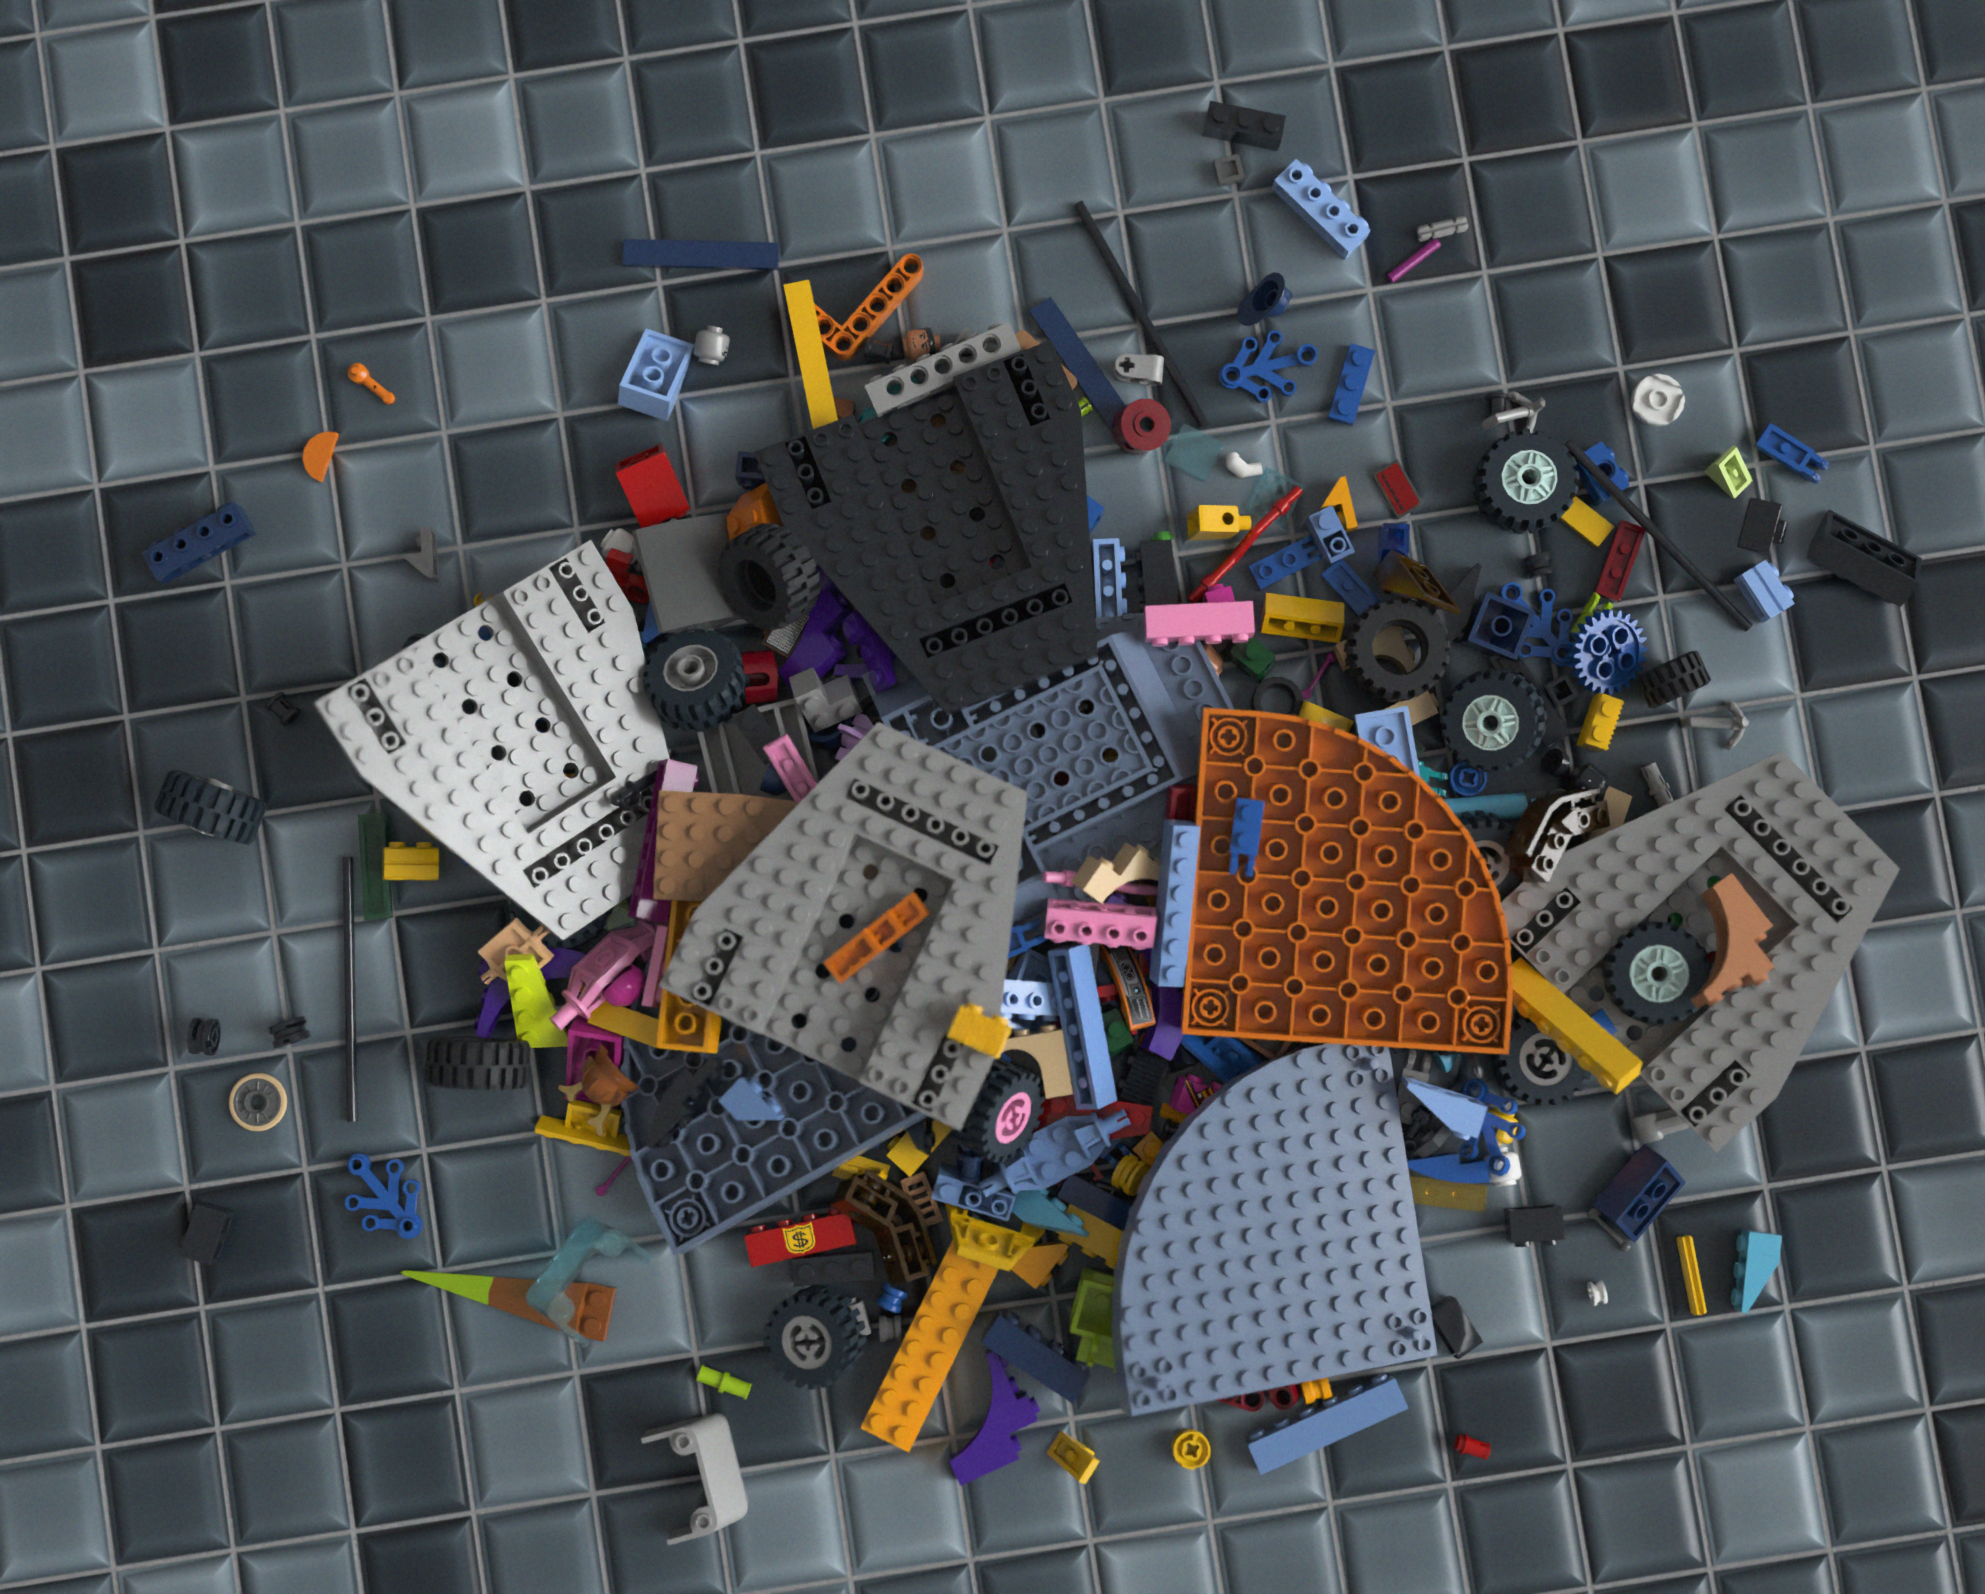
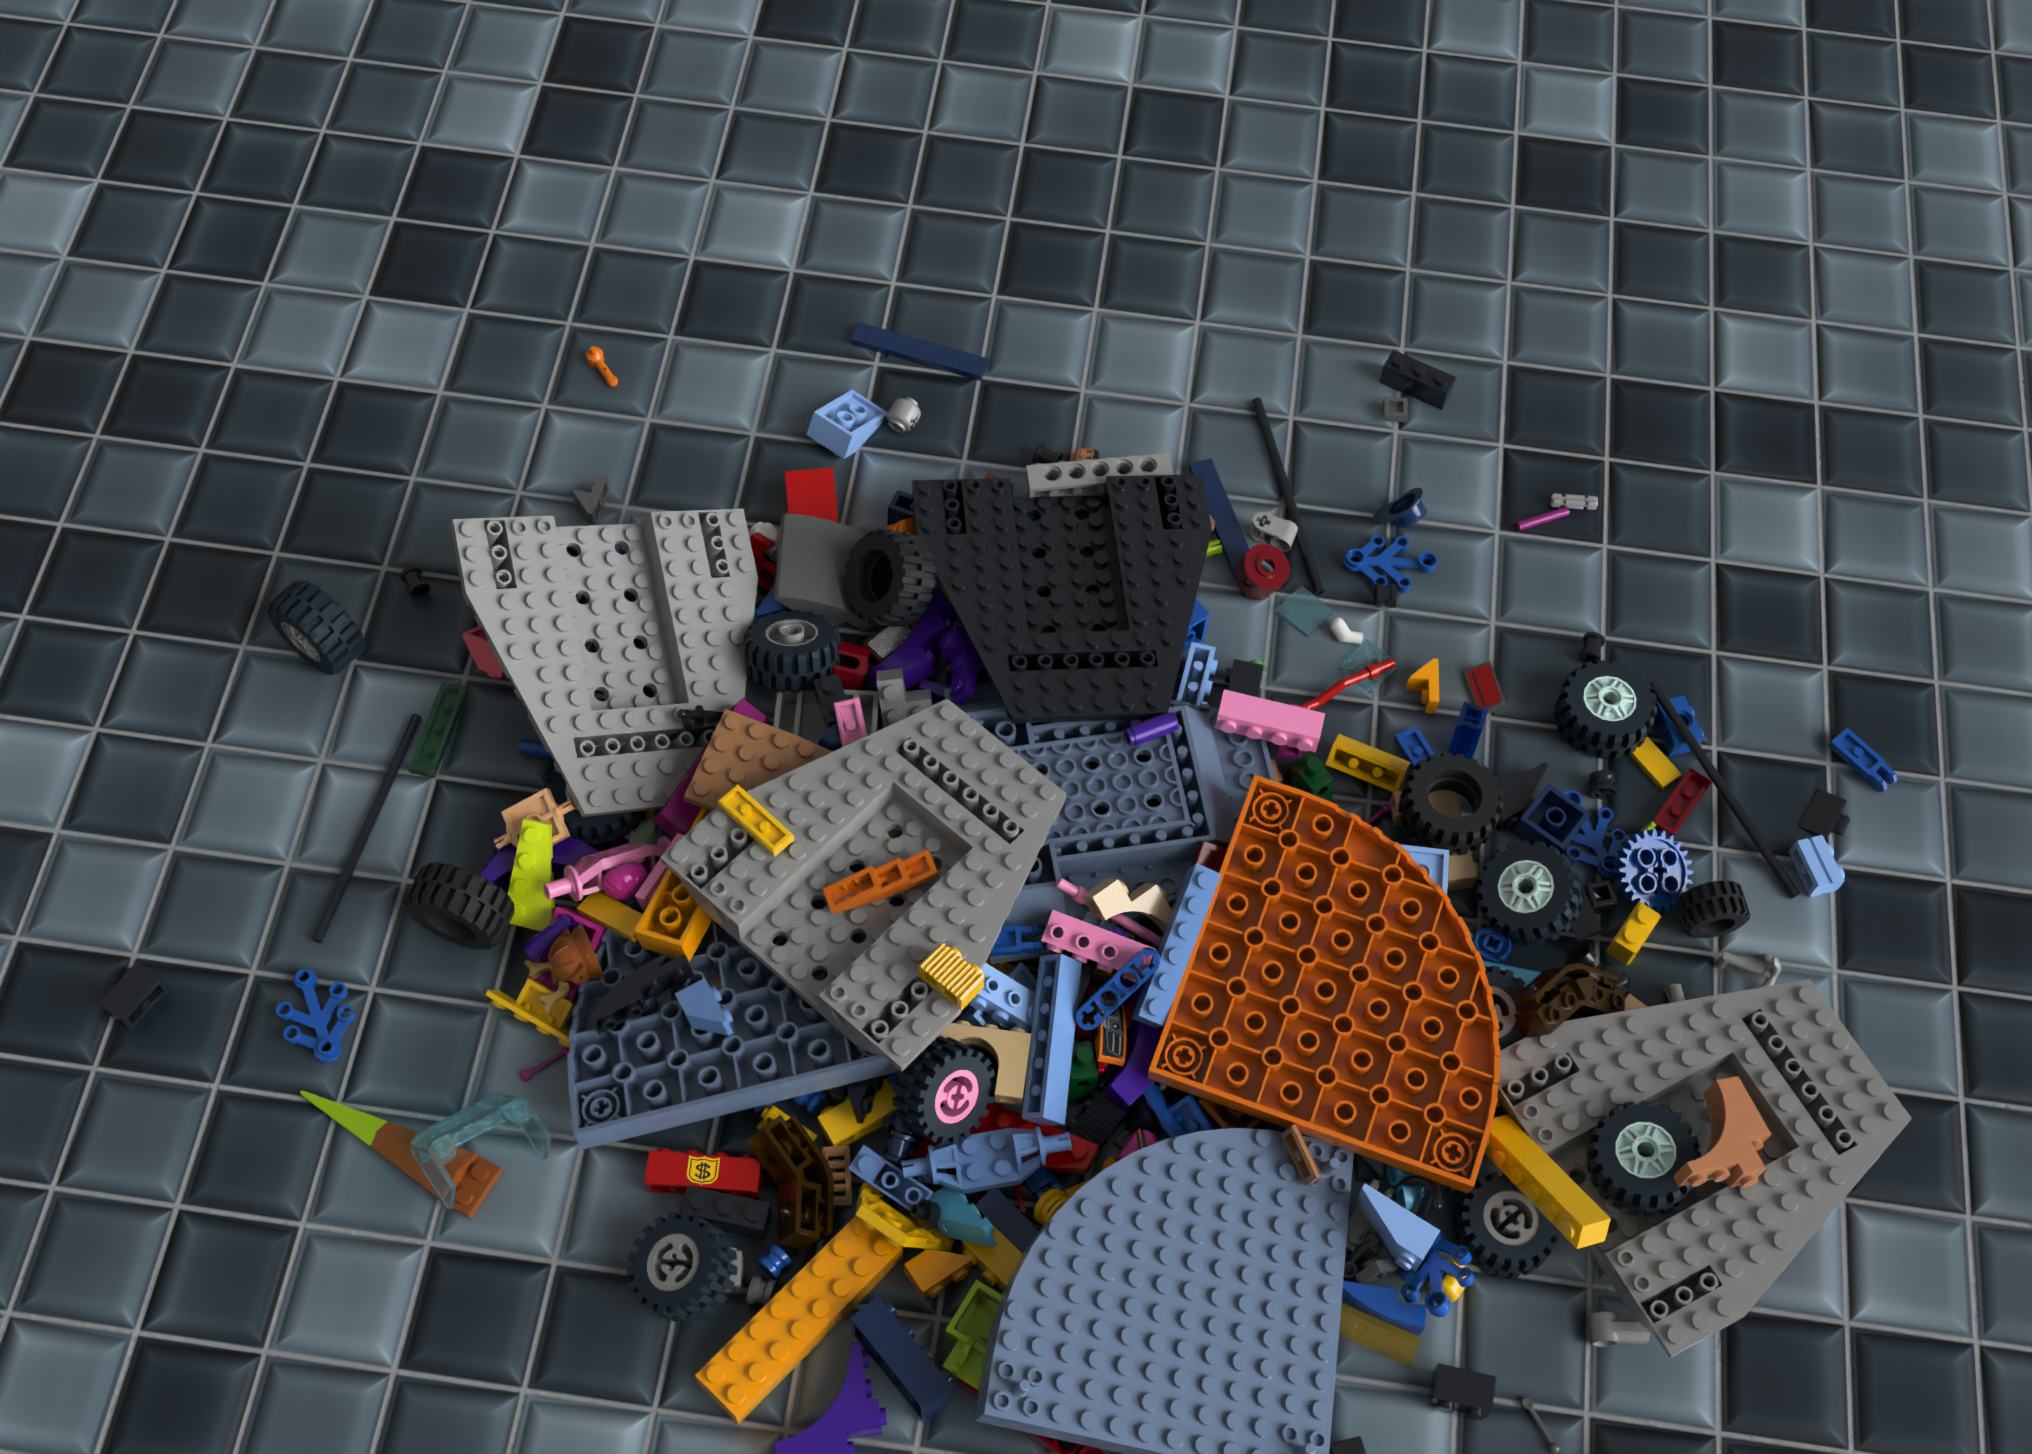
camera: 10 degrees right, 25 degrees down
(198, 542) = (403, 438): dark blue brick -> none
(204, 1036) = (217, 822): black wheel -> none
(274, 1104) = (238, 881): dark grey wheel -> none
(285, 1036) = (296, 842): black wheel -> none
(319, 453) = (535, 404): orange tile -> none
(410, 862) = (471, 731): yellow brick -> none
(574, 1060) = (543, 941): none -> dark purple piece
(719, 1469) = (533, 1381): light grey windscreen -> none
(724, 1382) = (572, 1294): lime pin -> none
(737, 922) = (755, 820): none -> yellow tile
(810, 353) = (988, 430): yellow tile -> none
(865, 314) = (1046, 429): orange beam -> none
(1016, 1222) = (925, 1214): none -> black tile
(1086, 678) = (1151, 729): none -> dark purple piece
(1128, 963) = (1121, 991): none -> blue beam
(1216, 522) = (1308, 664): yellow torso -> none
(1245, 833) = (1264, 894): blue hinge -> none
(1273, 411) = (1385, 595): none -> black wheel
(1283, 563) = (1363, 719): blue hinge -> none
(1320, 208) = (1469, 457): light blue brick -> none
(1329, 534) = (1410, 701): medium blue slope -> none
(1344, 1066) = (1301, 1155): none -> medium nougat slope
(1351, 384) = (1462, 597): blue plate -> none
(1413, 580) = (1470, 744): dark brown slope -> none
(1512, 1175) = (1443, 1329): white head -> none
(1528, 409) = (1609, 651): light grey piece -> none
(1639, 1192) = (1581, 1393): dark blue slope -> none
(1657, 400) = (1743, 685): white tile -> none
(1730, 472) = (1801, 757): yellowish green slope -> none
(1865, 559) = (1919, 866): black slope -> none

